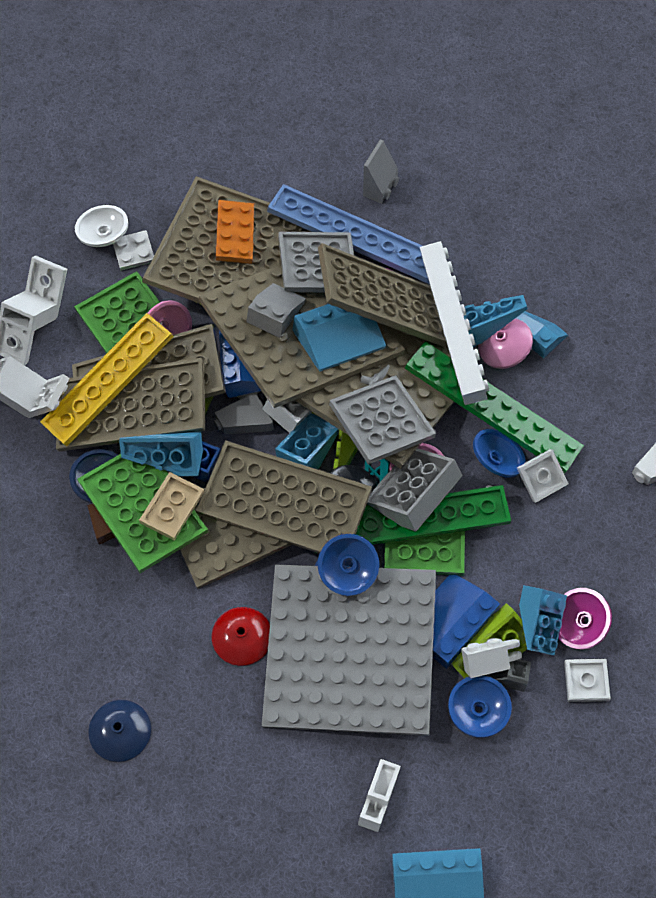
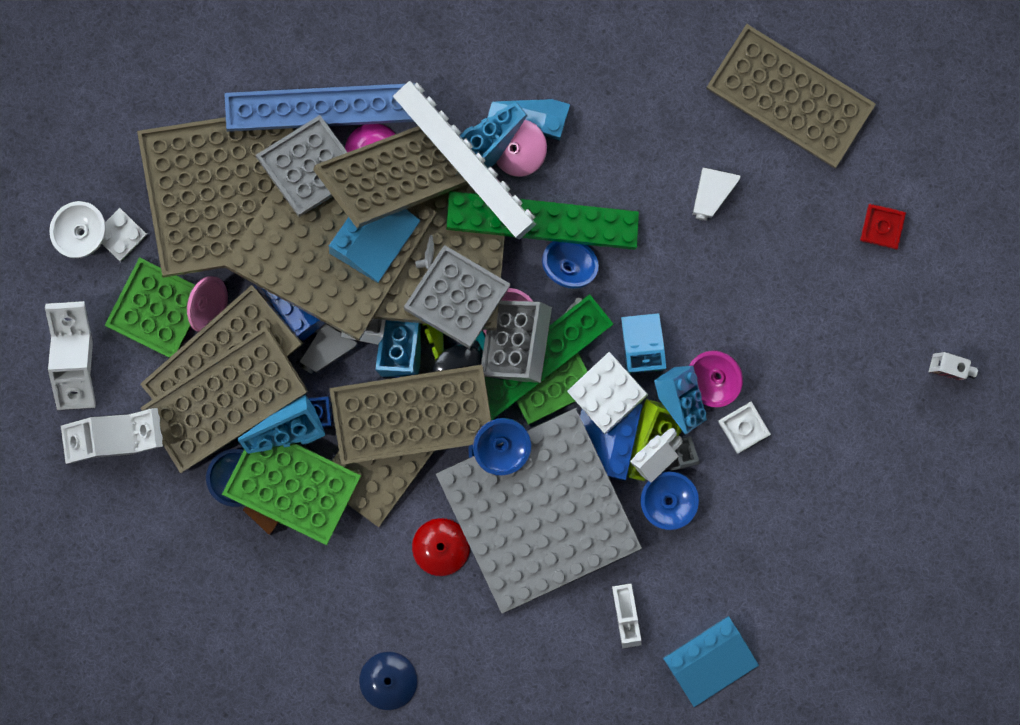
camera: 30 degrees left, 20 degrees up
(107, 379) = (190, 387): yellow plate -> none
(171, 506) = (320, 474): tan plate -> none
(235, 232) = (211, 173): orange plate -> none
(274, 309) = (303, 241): light grey slope -> none
(379, 174) = (311, 32): light grey slope -> none
(473, 576) = (607, 393): none -> white plate
(528, 557) = (643, 343): none -> dark azure slope
(542, 475) = (618, 263): white plate -> none

